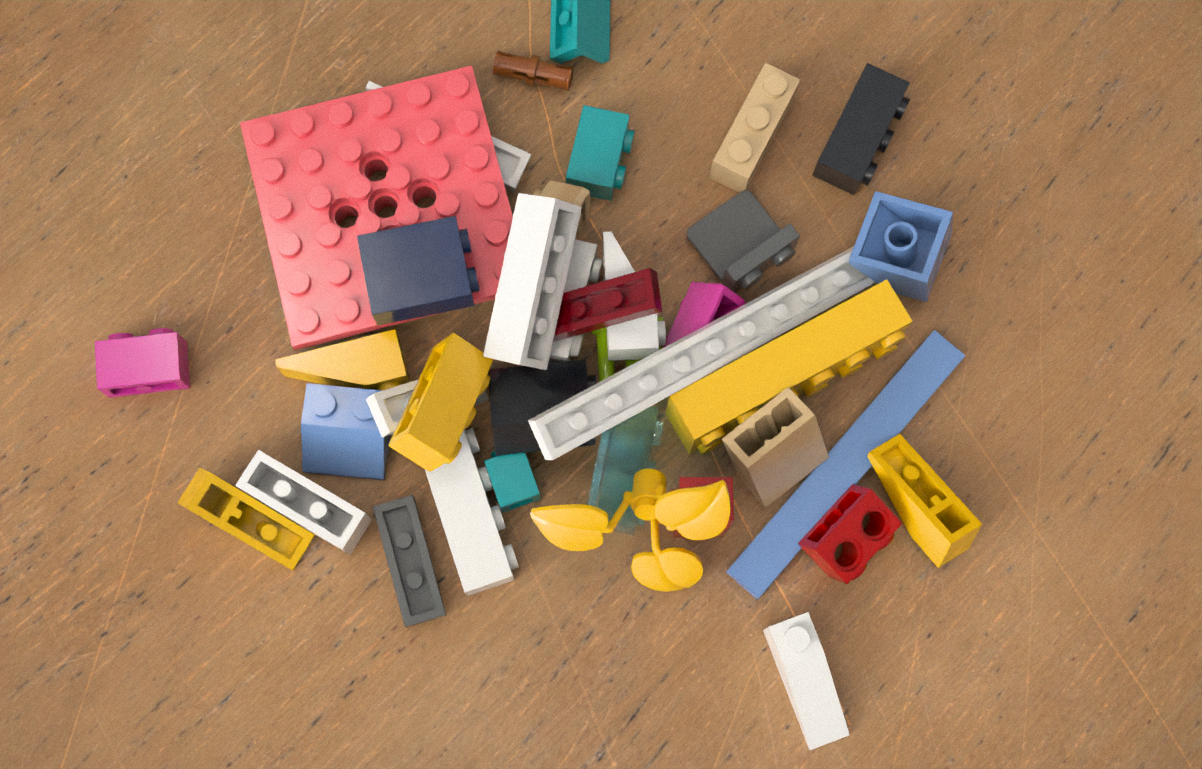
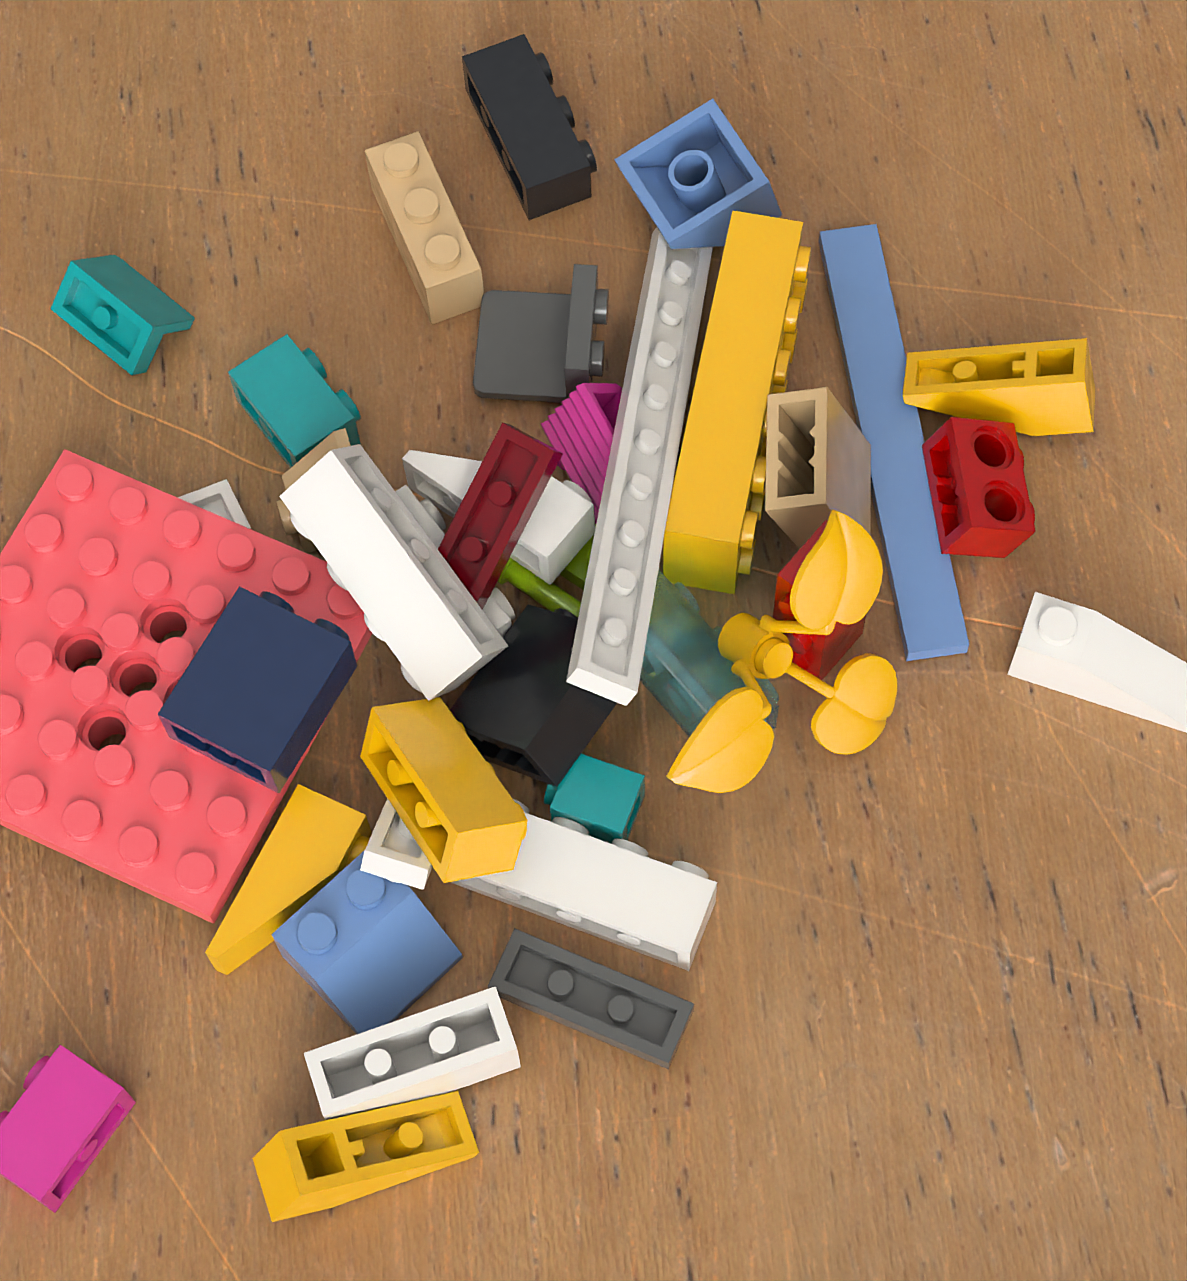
camera: 45 degrees left, 10 degrees down
(533, 70) = (128, 402): dark orange pin -> none

